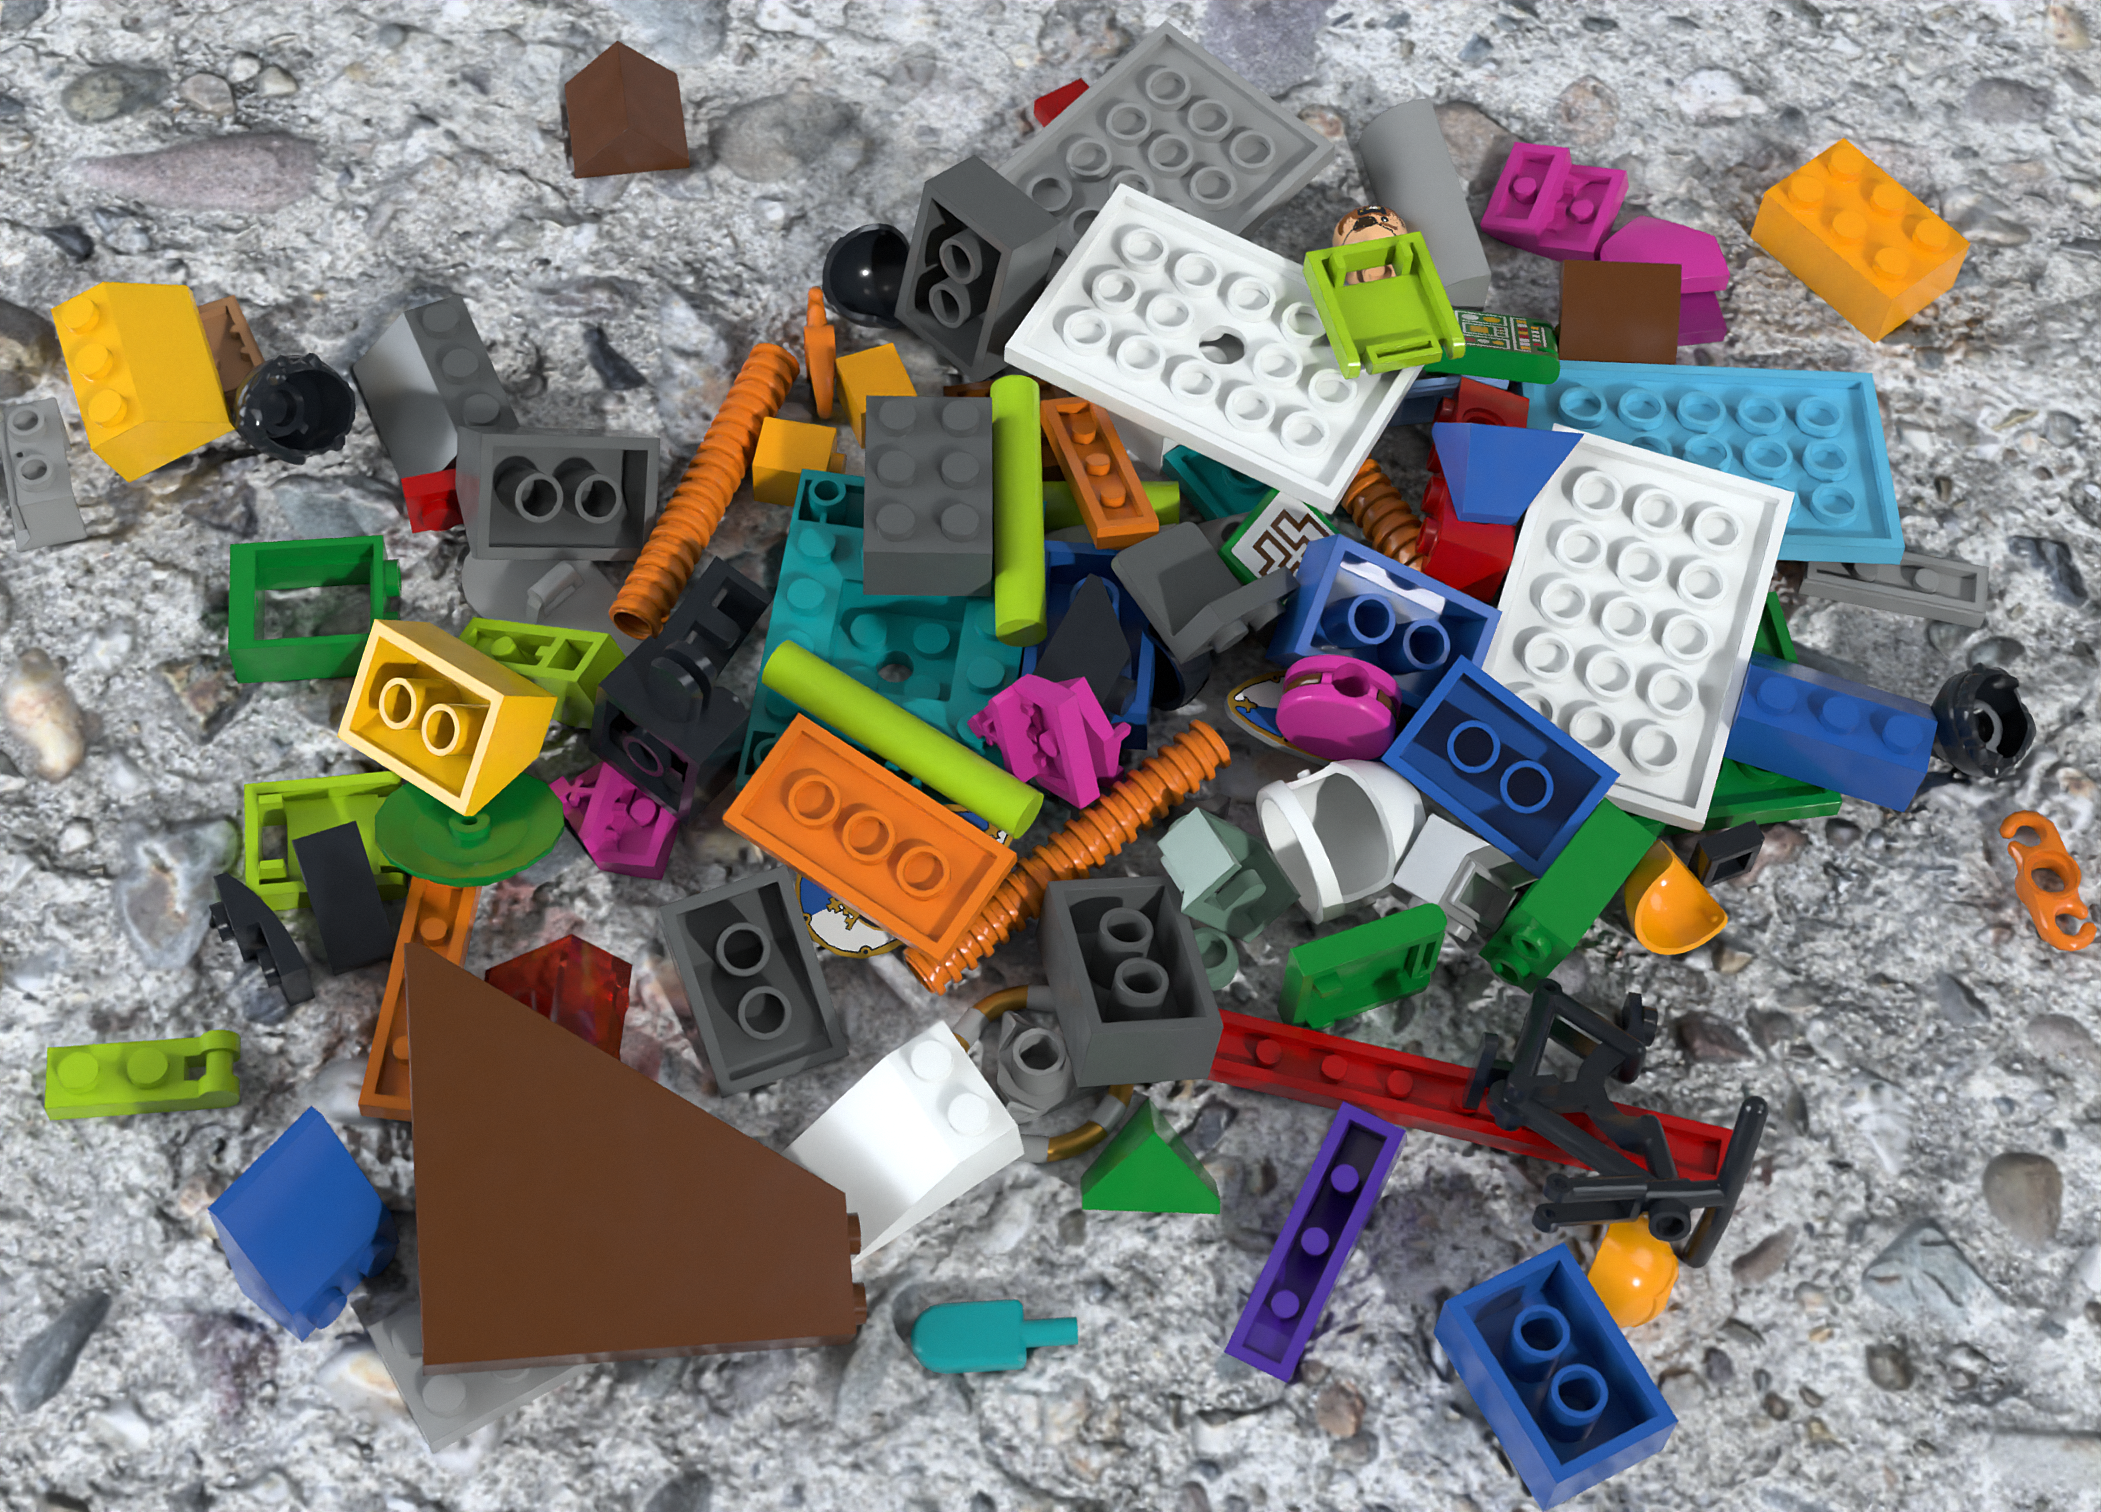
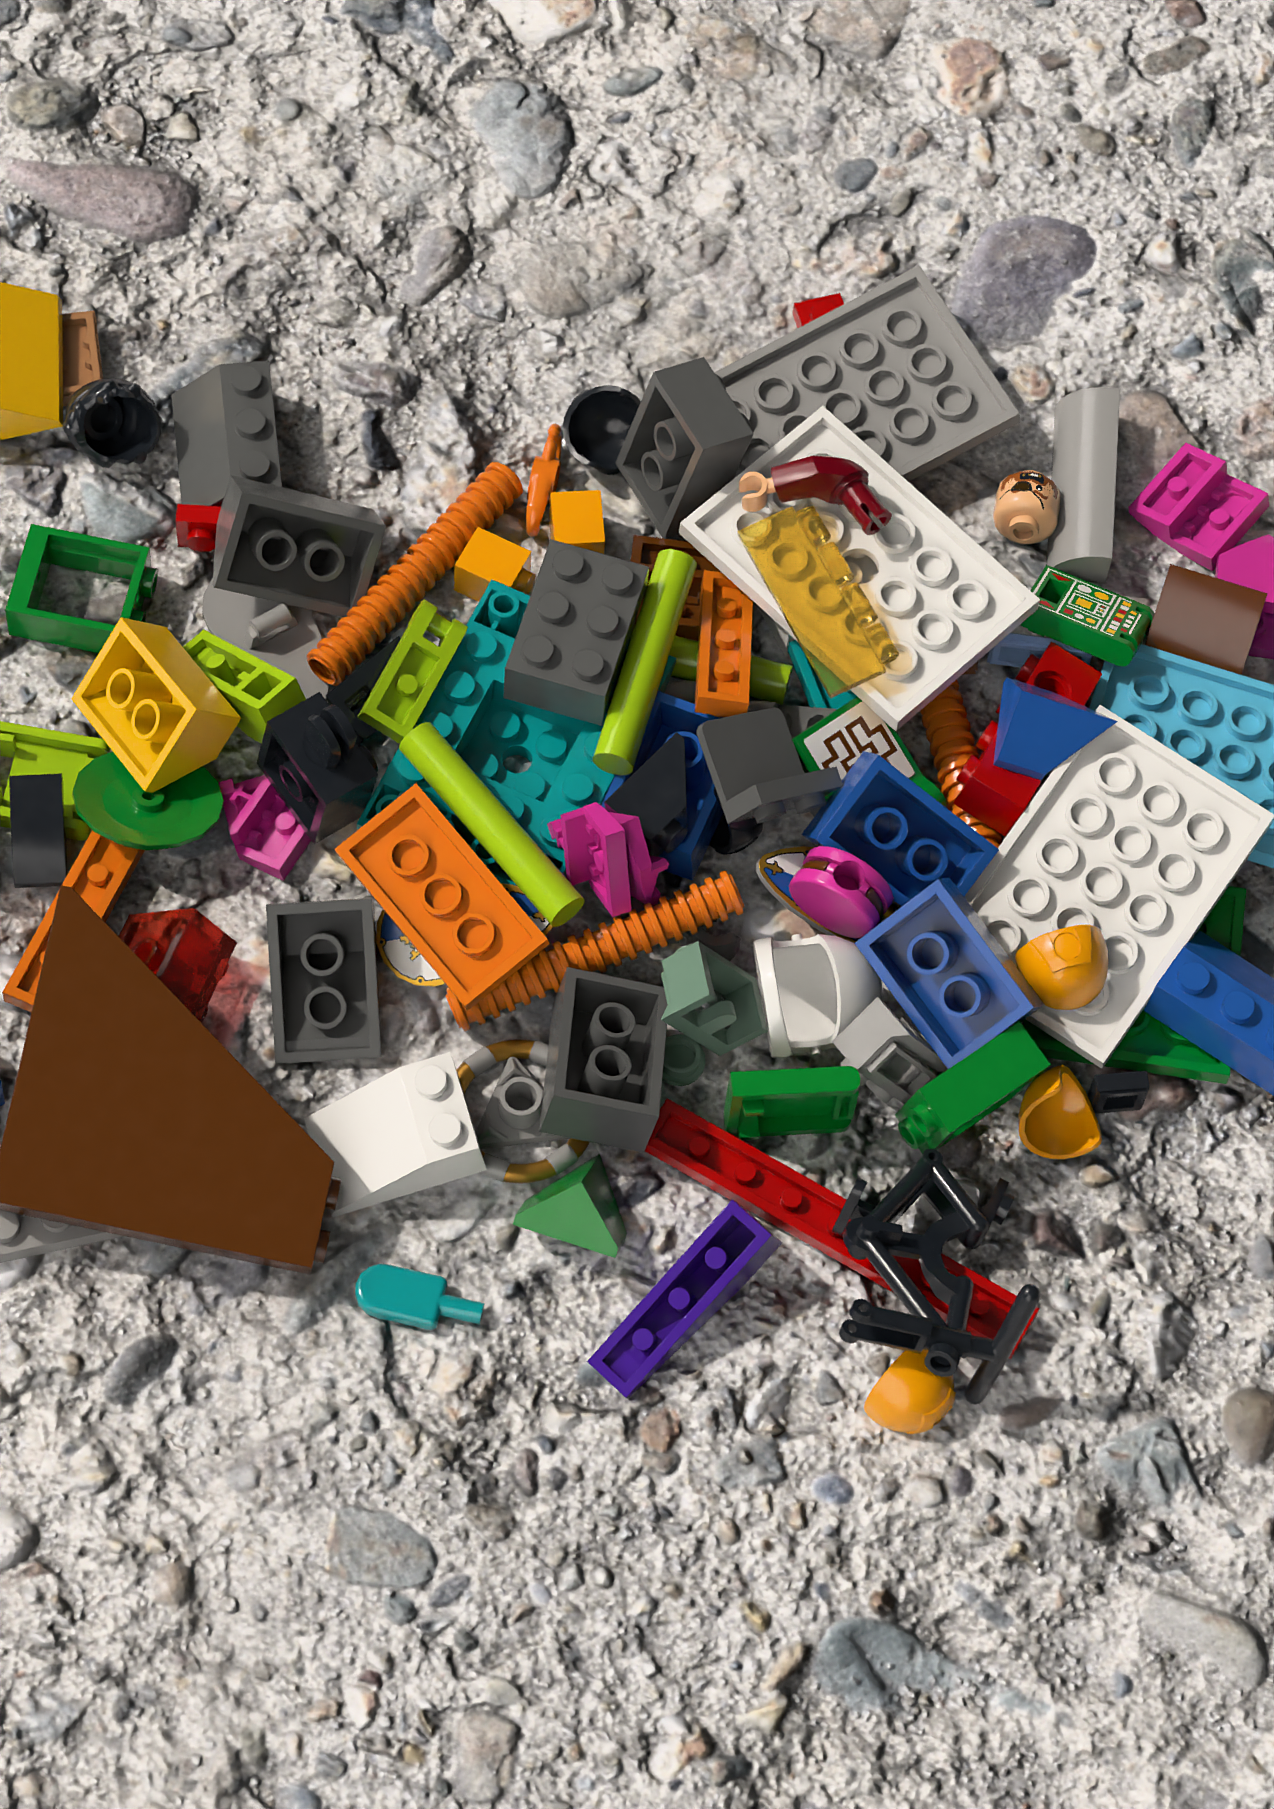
camera: 15 degrees right, 5 degrees up
(625, 116) = (454, 232): reddish brown slope -> none
(747, 592) = (412, 673): none -> lime plate
(1156, 253) = (818, 477): none -> dark red arm
(1181, 385) = (808, 593): none -> clear yellow windscreen
(1386, 320) = (996, 581): lime container -> none
(1554, 1376) = (823, 1450): blue brick -> none
(1626, 722) = (1065, 966): none -> light orange helmet

